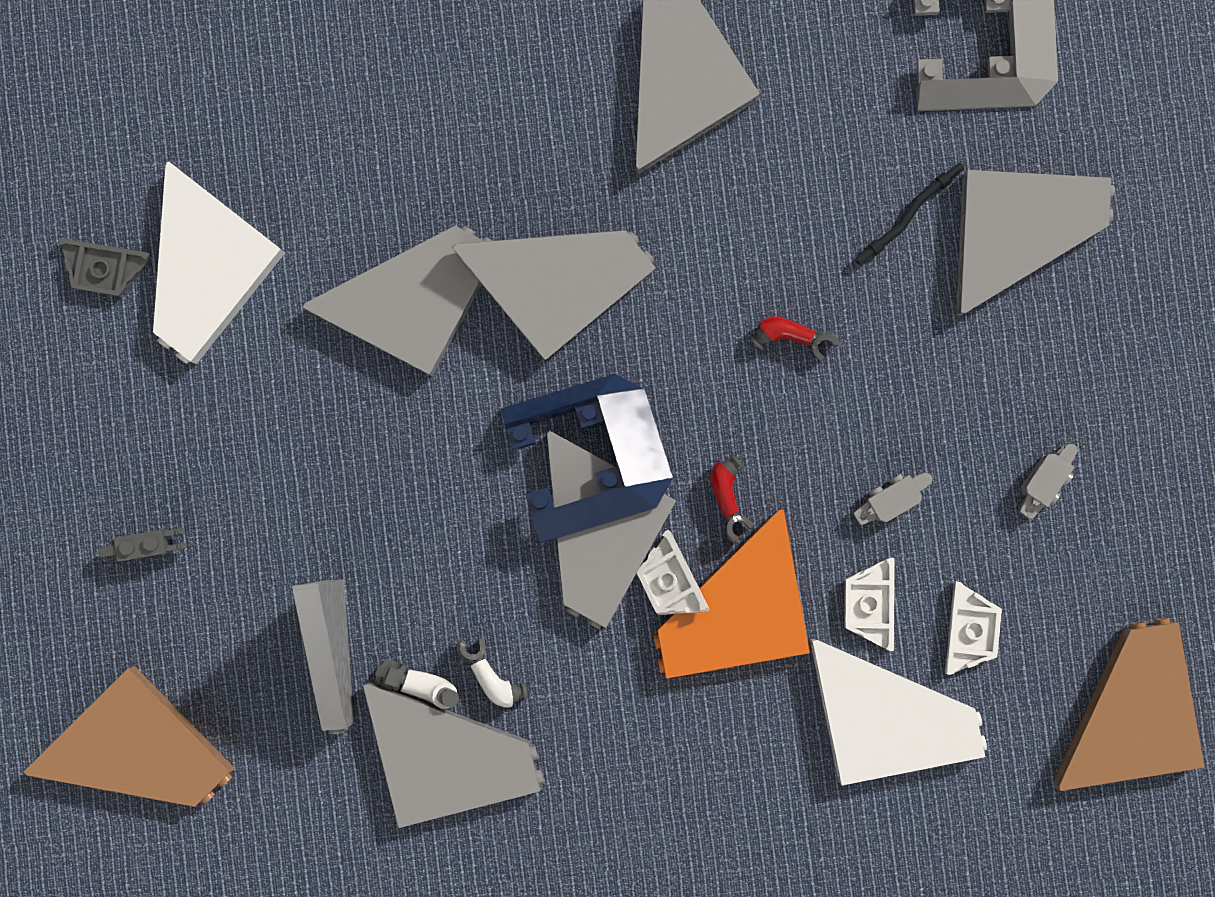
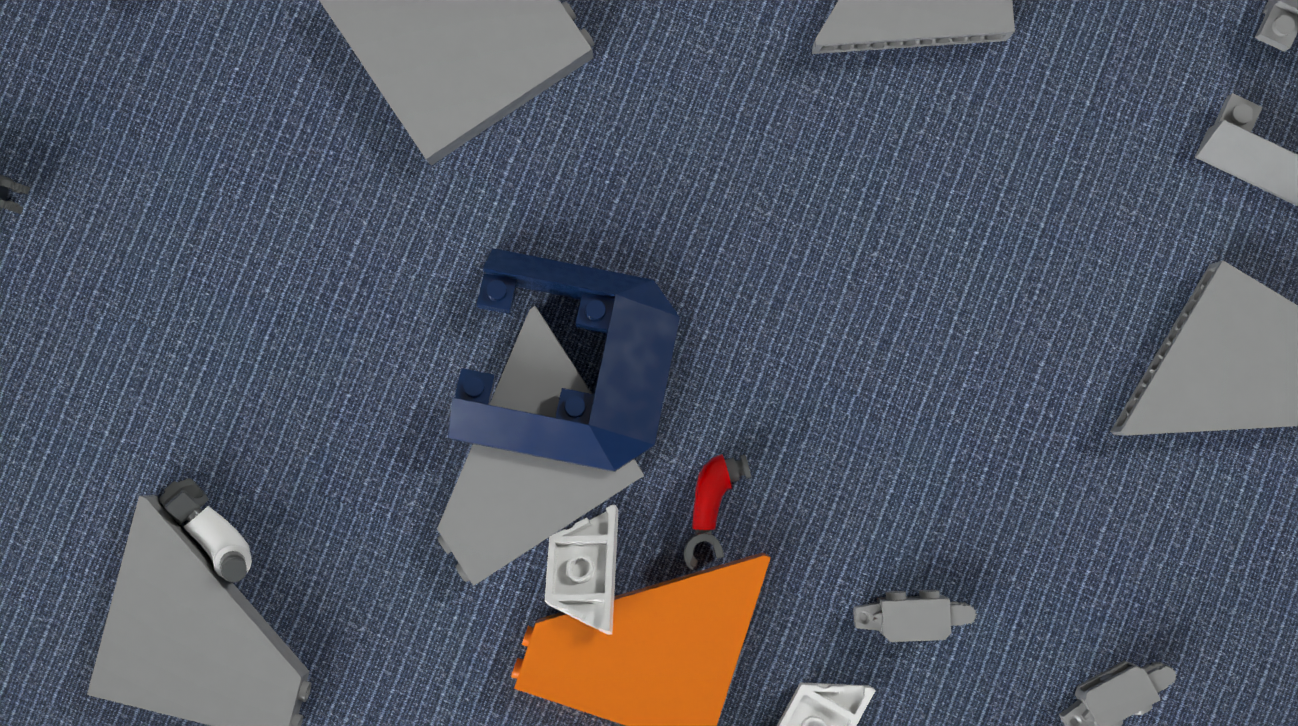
camera: 25 degrees right, 0 degrees up
(326, 644) = (113, 415): light grey slope -> none
(497, 690) = (300, 588): white piece -> none
(557, 282) = (641, 129): light grey slope -> none
(779, 328) = (886, 332): red piece -> none
(941, 181) = (1179, 259): black bar -> none

